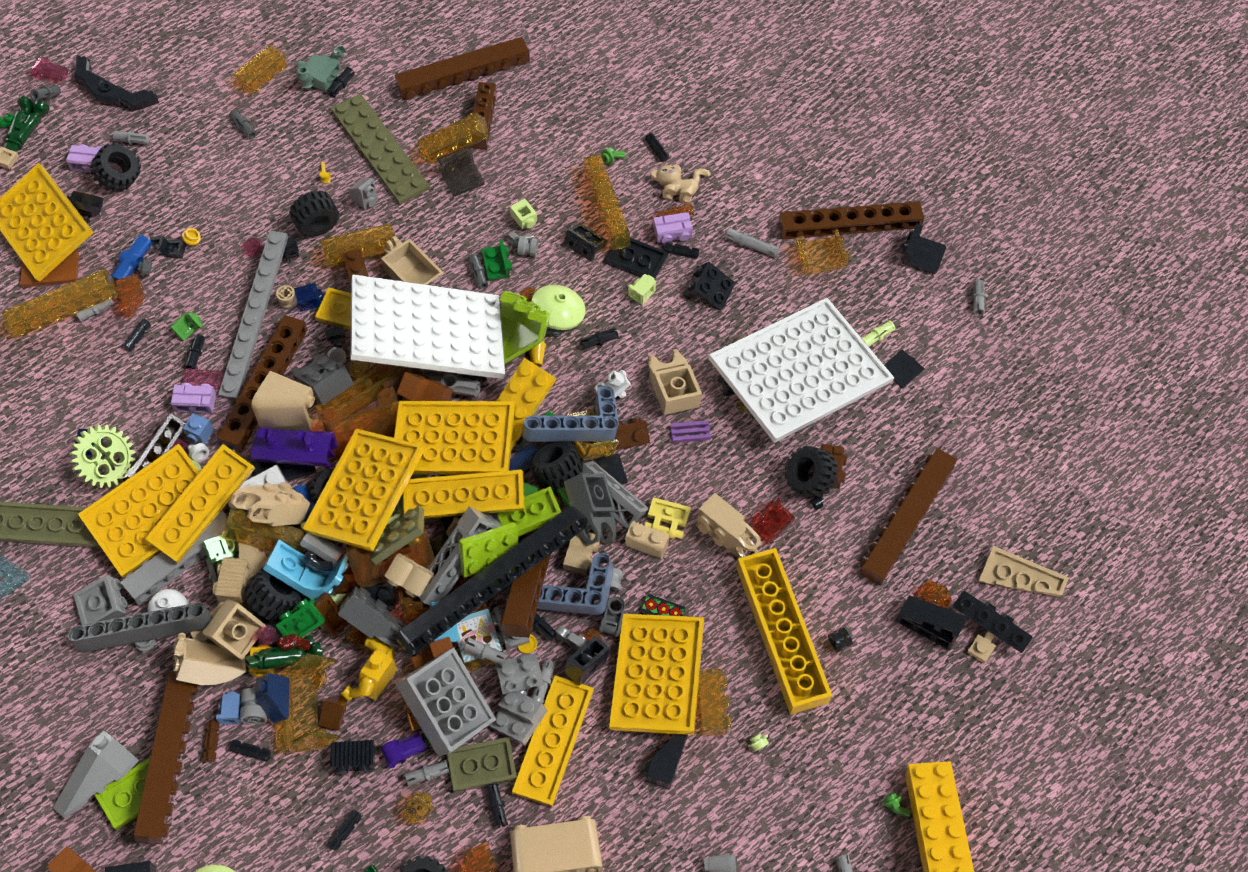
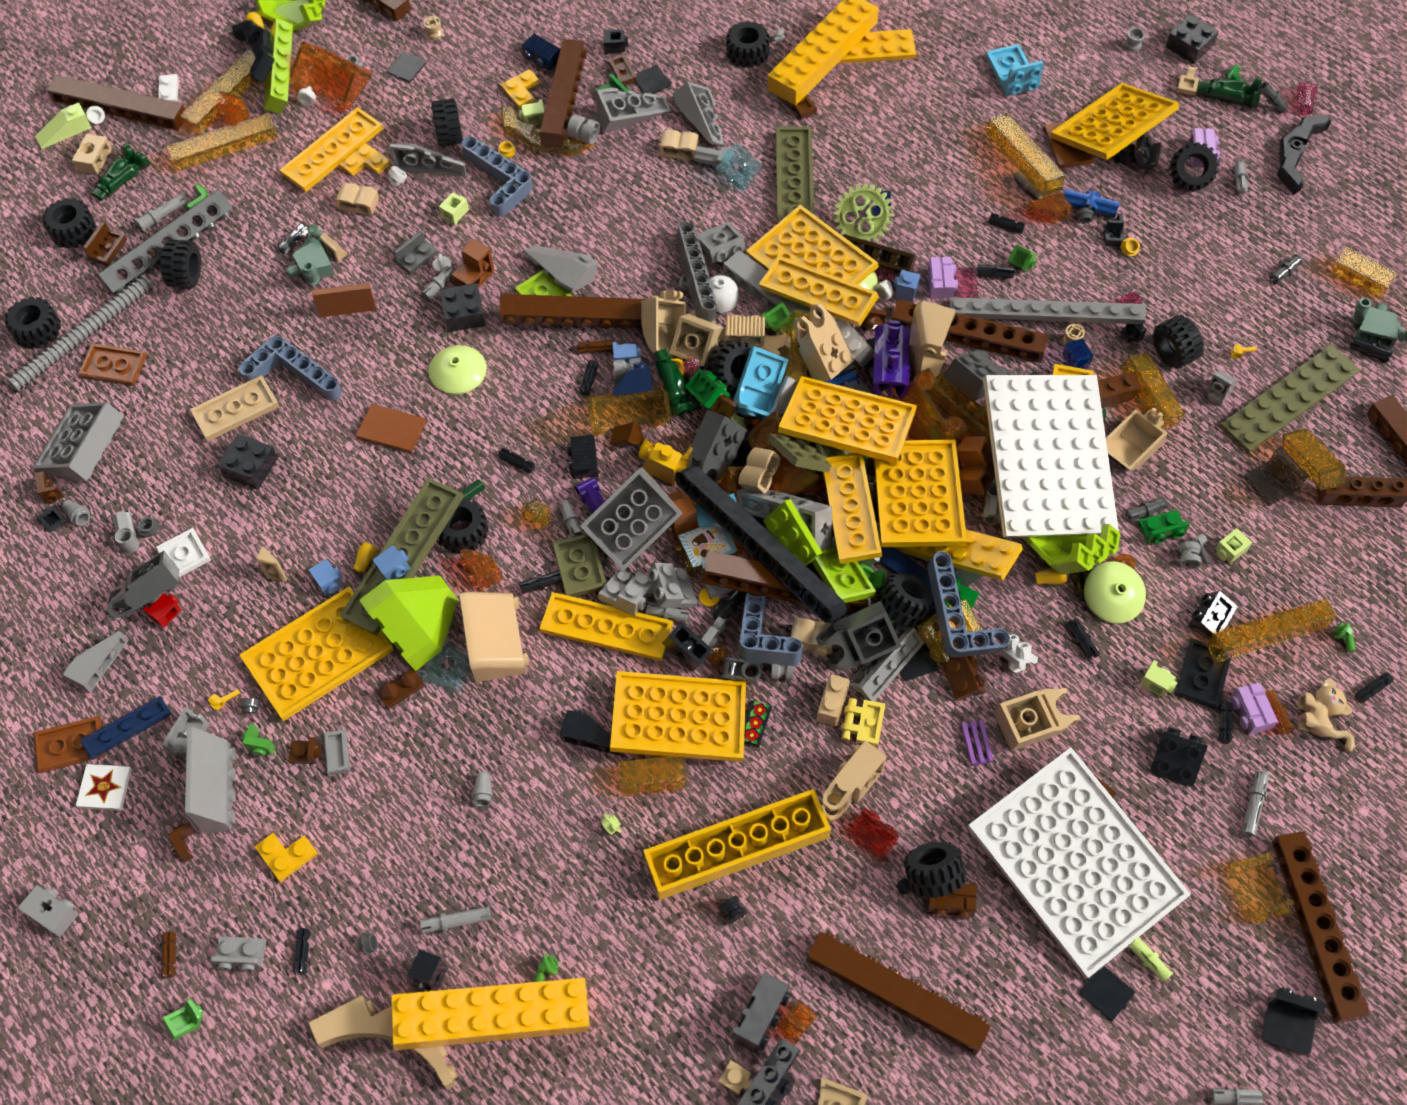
camera: 90 degrees right, 0 degrees up
(292, 641) = (685, 386): clear red arm -> none
(317, 565) = (768, 396): black arm -> none
(485, 651) = (688, 549): light grey pin -> none

